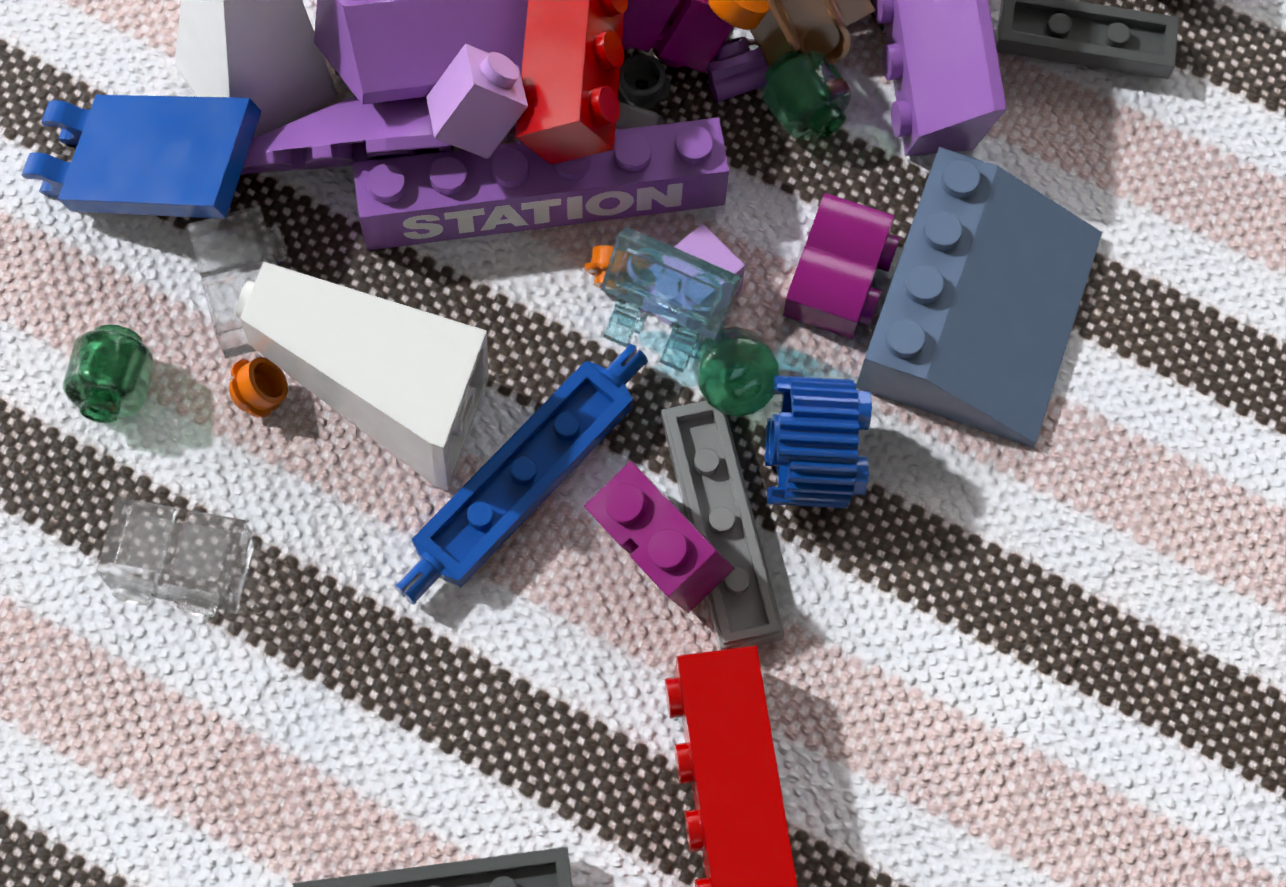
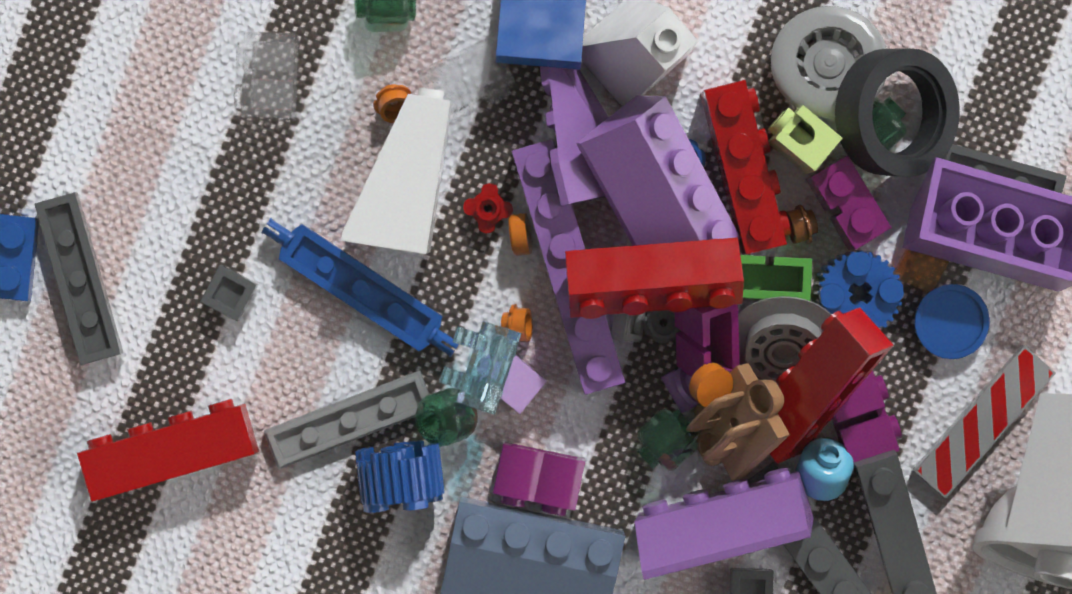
camera: 85 degrees right, 20 degrees up
(443, 299) = (500, 208): none -> red plate
(476, 101) = (589, 220): lavender brick -> none
(484, 242) = (520, 234): none -> orange tile
(498, 666) = (229, 292): none -> dark grey plate
(659, 537) = (325, 385): magenta piece -> none

